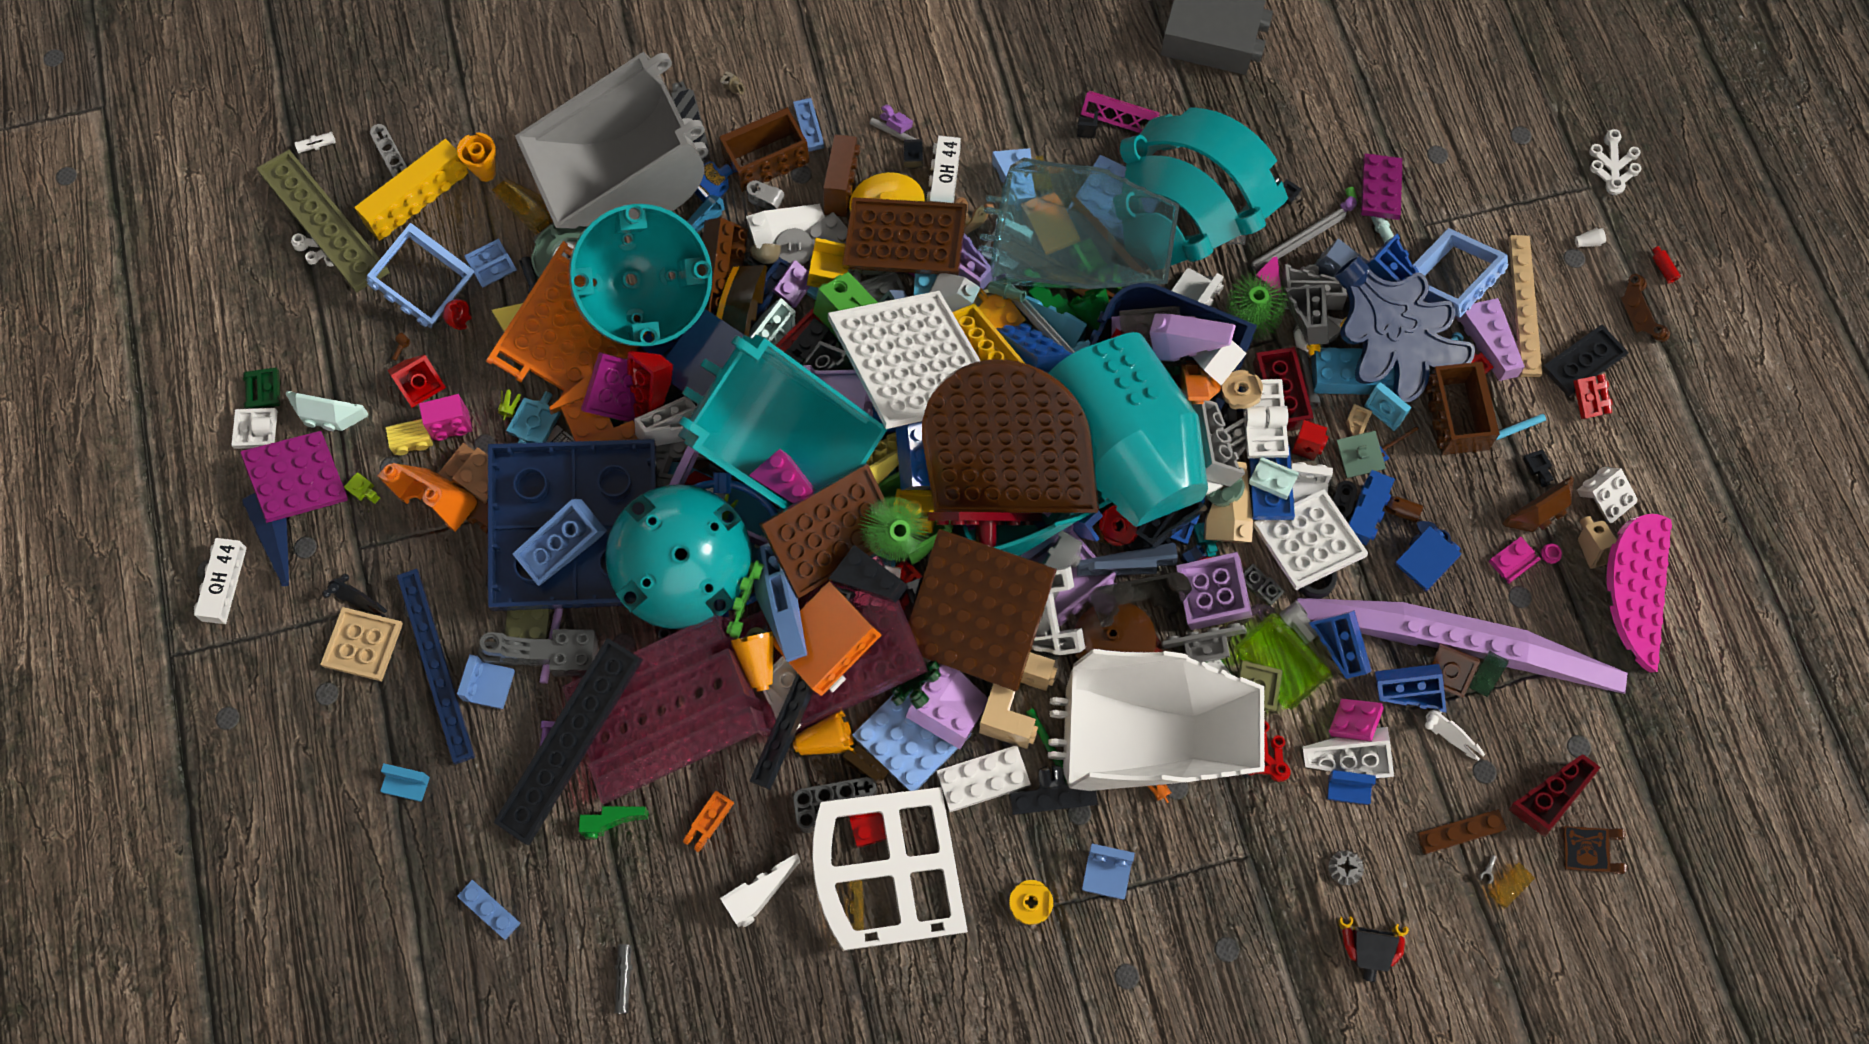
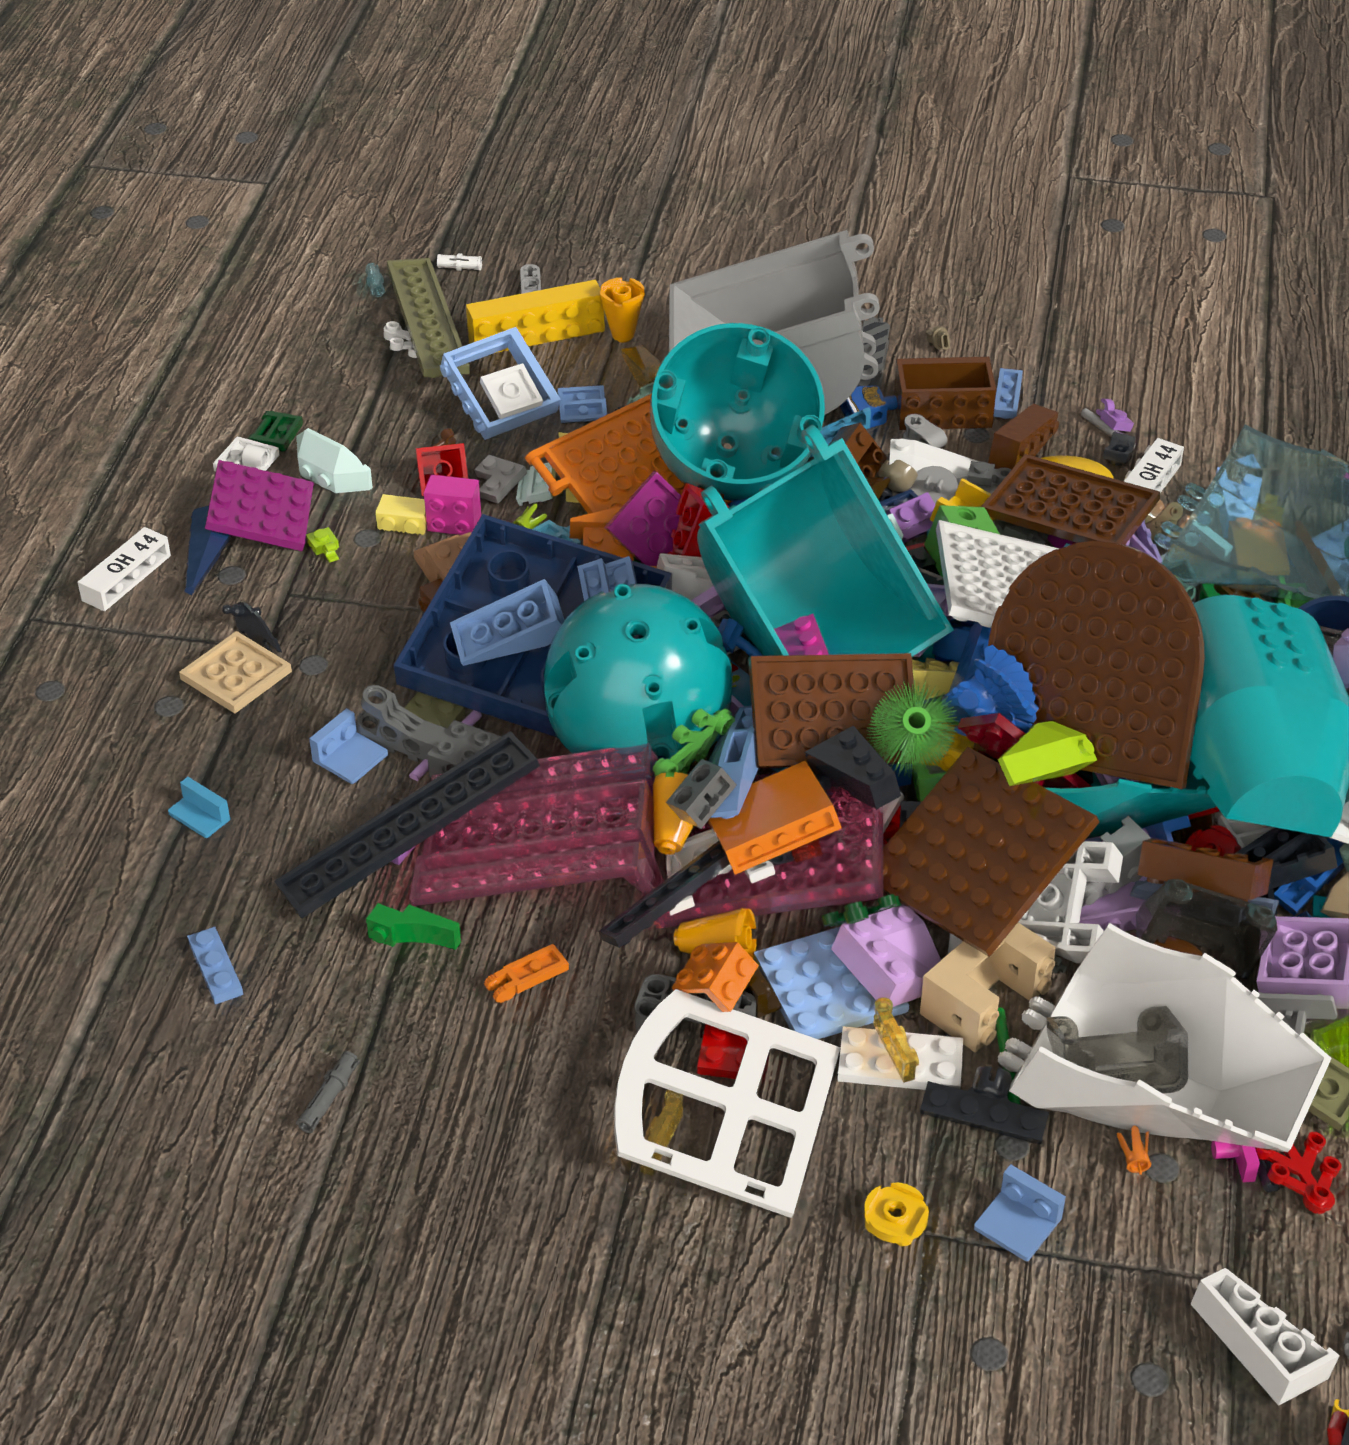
camera: 25 degrees right, 25 degrees down
(255, 190) = (375, 280): none -> clear light blue pin
(435, 285) = (511, 391): none -> white plate
(436, 667) = (302, 721): dark blue plate -> none
(440, 494) = (386, 547): orange windscreen -> none
(456, 314) = (519, 429): red hair -> none
(468, 367) = (500, 477): none -> light grey plate
(492, 372) = (533, 487): none -> light aqua plate
(614, 470) = (603, 577): none -> medium blue slope
(748, 900) = (538, 1062): white wedge -> none
(778, 651) = (701, 793): none -> dark grey brick
(826, 221) = (985, 473): none -> dark grey plate
(841, 779) = (717, 971): none -> orange bracket
(945, 481) = (996, 687): none -> blue piece
(977, 773) = (895, 1040): none -> clear yellow plate
(999, 520) = (1046, 753): none -> lime wedge
(1128, 555) = (1205, 868): none -> reddish brown wedge
(1128, 730) = (1152, 1054): none -> clear smoke windscreen
(1284, 896) = (1261, 1337): none -> white wedge

